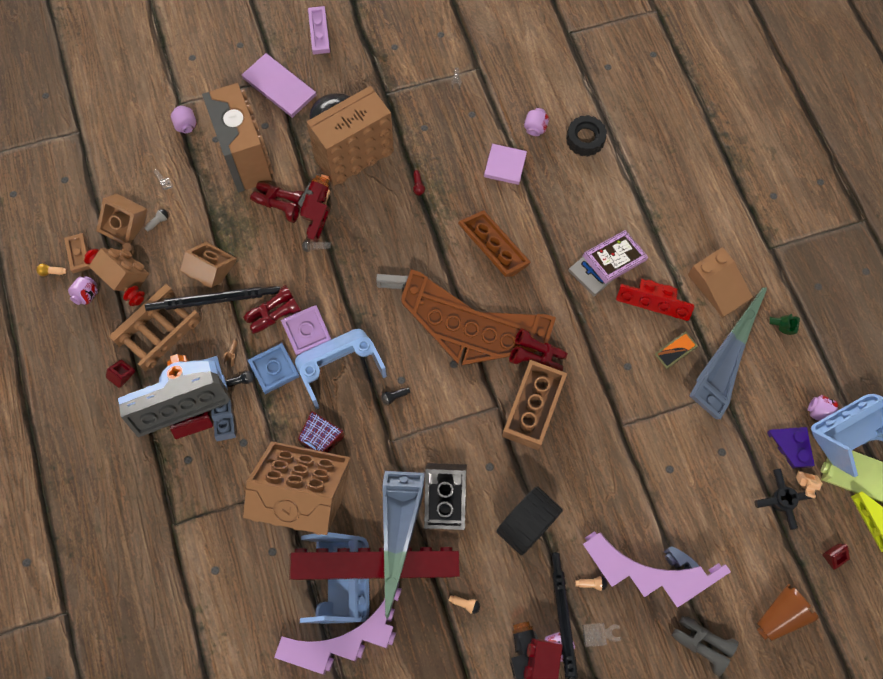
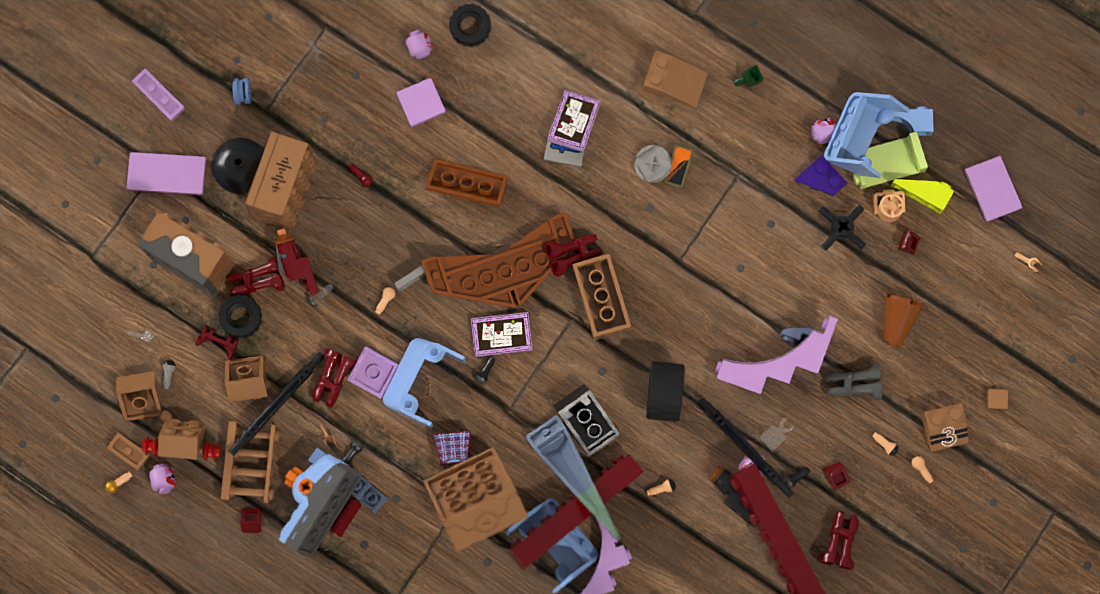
camera: 35 degrees left, 10 degrees up
(183, 119) = (114, 269): lavender head -> none
(219, 232) = (205, 337): none -> dark red piece
(235, 206) = (236, 302): none -> black tyre
(273, 368) = (371, 422): medium blue tile -> none
(367, 281) = (388, 294): none -> light nougat piece
(379, 65) = (241, 90): none -> medium blue wheel
(430, 376) = (501, 334): none -> tile
(599, 583) = (748, 398): light nougat piece -> none
(656, 298) = (631, 132): red bracket -> none
(656, 333) = (653, 163): none -> light grey tile
(718, 378) = (727, 166): sand blue plate -> none
(809, 482) = (852, 200): light nougat plate -> none
(841, 512) = (890, 206): none -> light nougat piece

